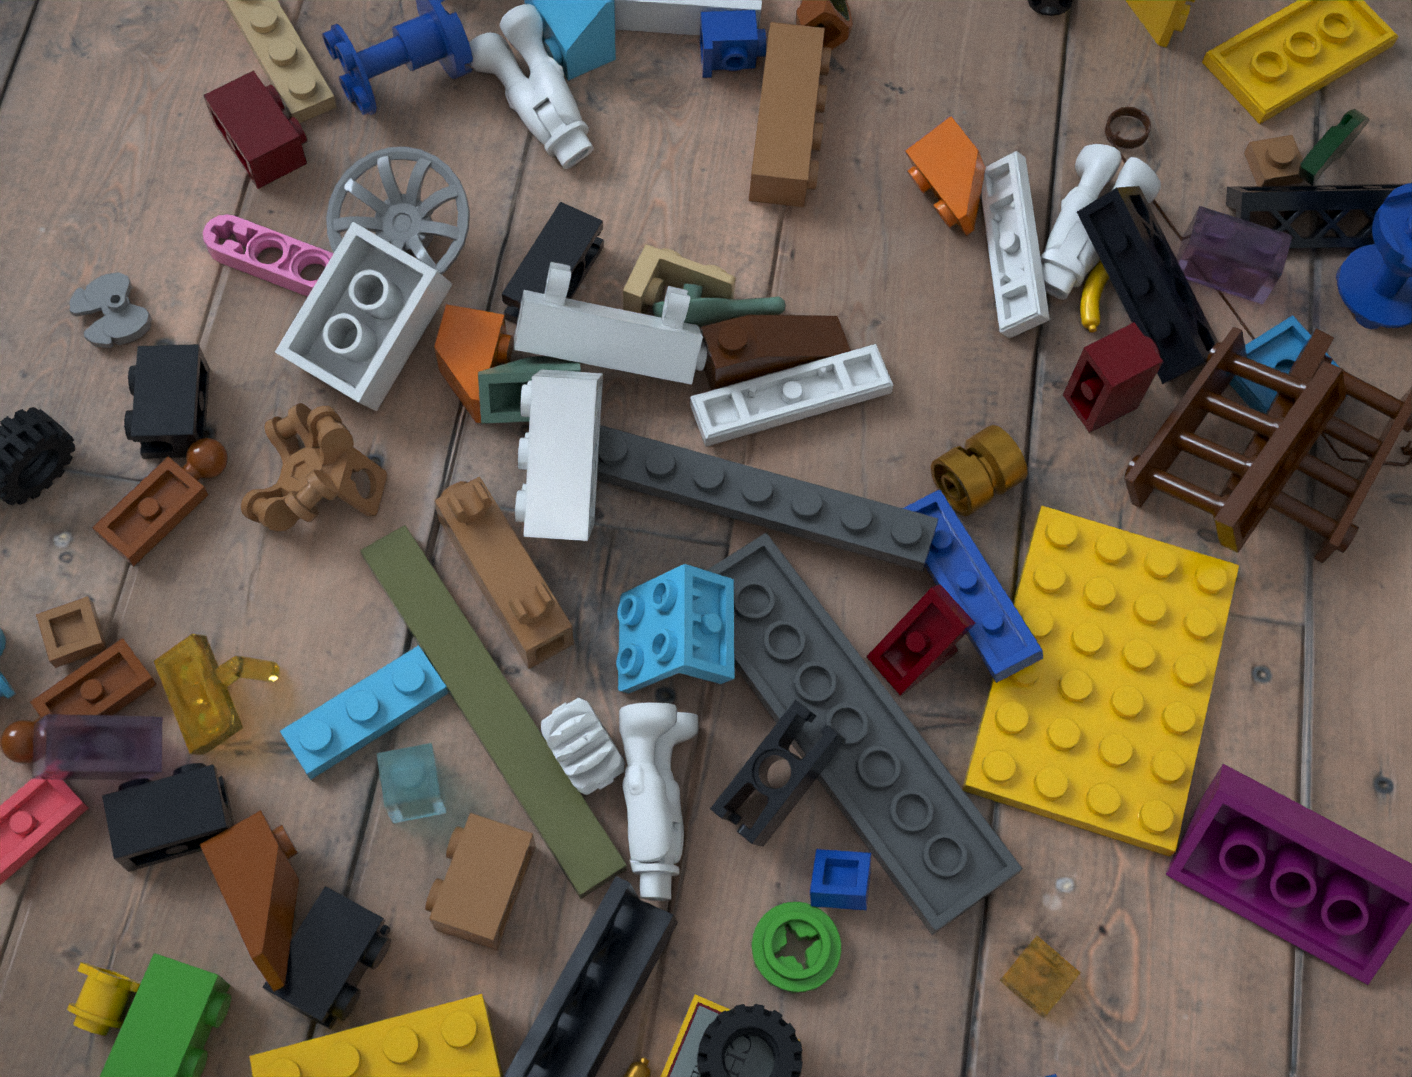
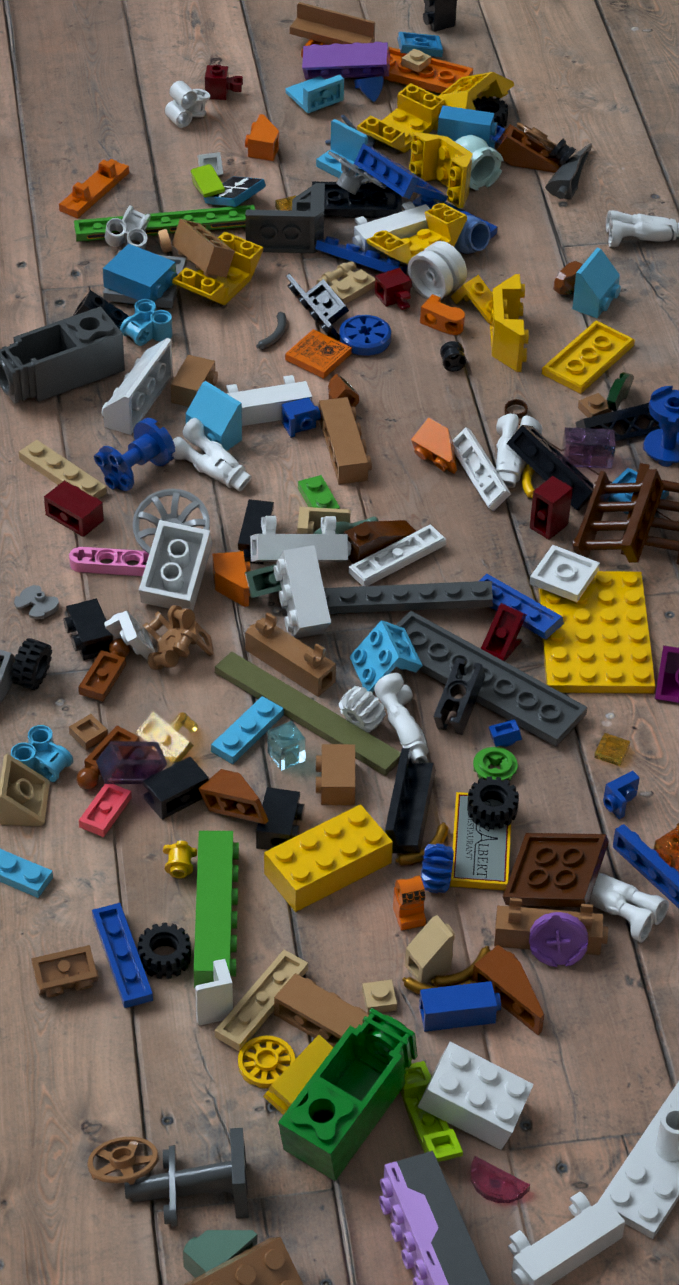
camera: 15 degrees left, 20 degrees down
(226, 448) = (132, 632): none -> white bracket
(700, 220) = (317, 493): none -> bright green piece
(985, 467) = (503, 560): pearl gold wheel -> none
(1085, 539) = (564, 573): none -> white plate

